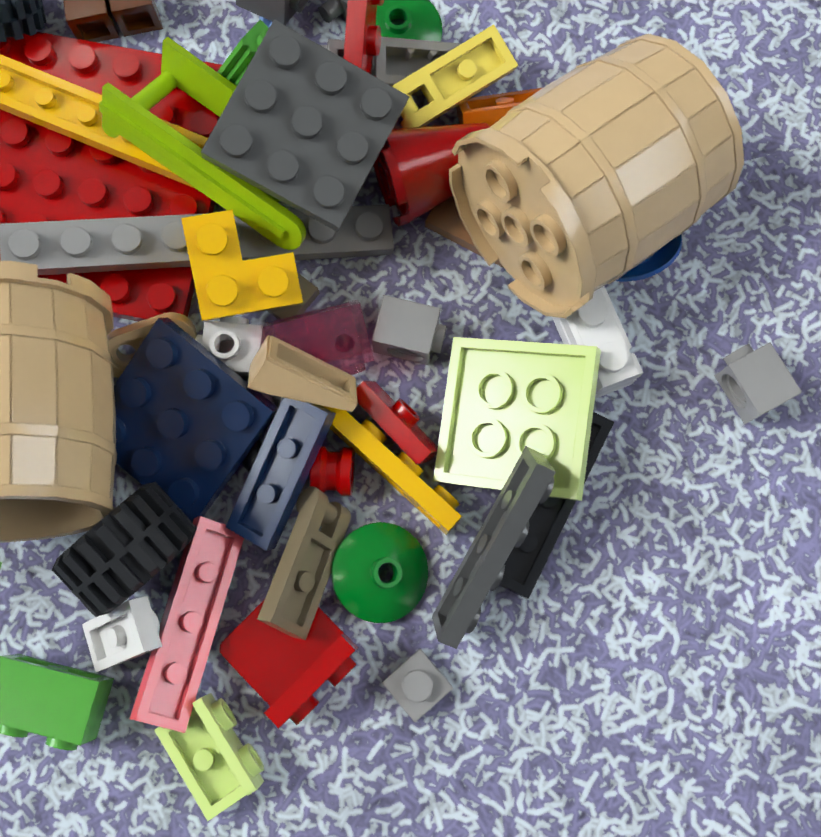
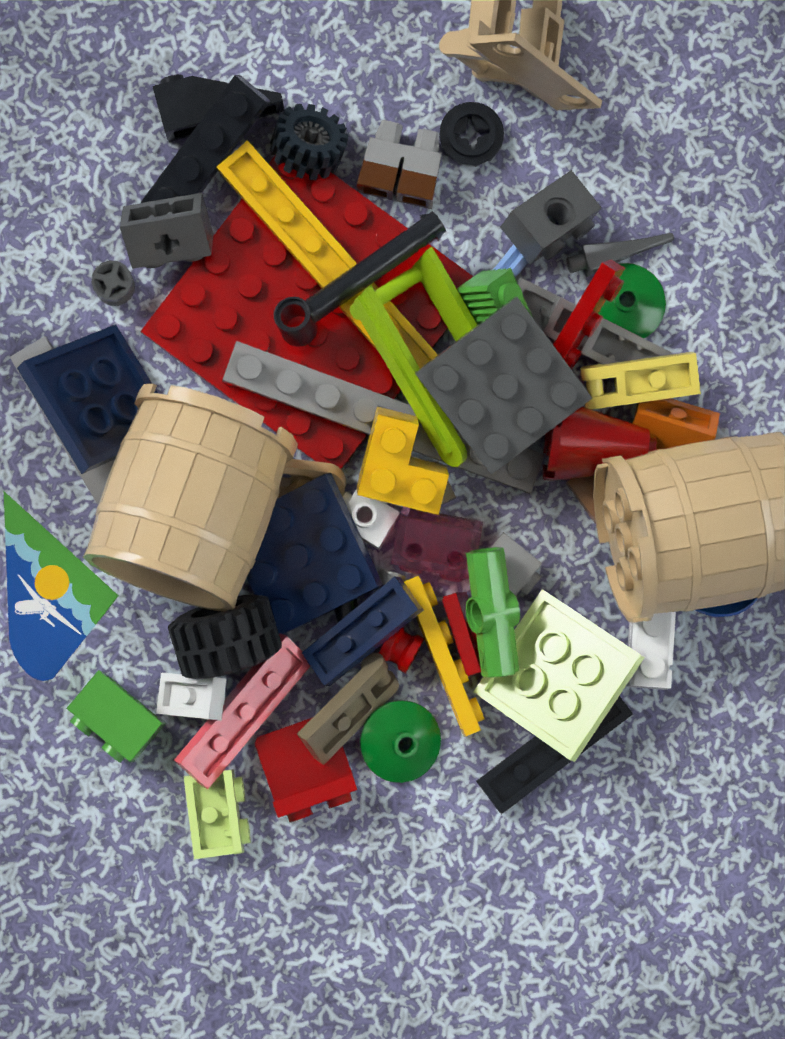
camera: 25 degrees right, 5 degrees up
(57, 168) = (354, 280): none -> black piece
(296, 375) = (410, 570): tan slope -> none
(412, 380) = (492, 612): none -> bright green piece
(417, 685) = (388, 837): light grey plate -> none
(500, 533) = (503, 756): dark grey plate -> none
(756, 381) = (759, 735): light grey brick -> none

